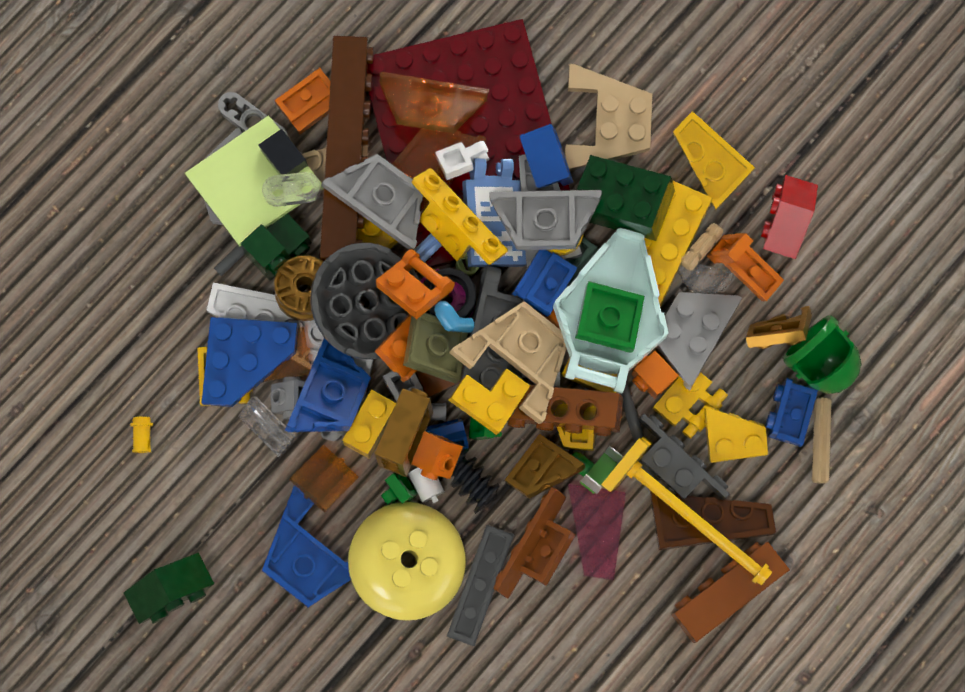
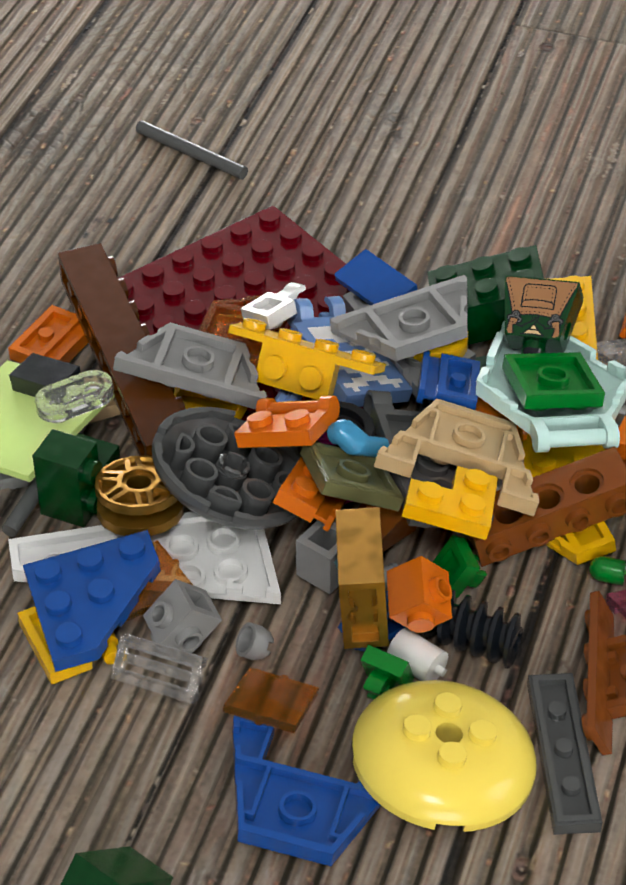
camera: 20 degrees left, 35 degrees down
(329, 393) = (233, 583): blue wing -> none
(369, 424) = (303, 615): yellow brick -> none
(431, 102) = (204, 282): clear orange wing -> none
(542, 468) = (563, 584): pearl gold wing -> none
(621, 118) = (422, 244): tan wing -> none
(631, 253) = (540, 313): none -> torso
(701, 246) = (609, 322): tan axle -> none
(712, 159) = (567, 250): yellow wing -> none

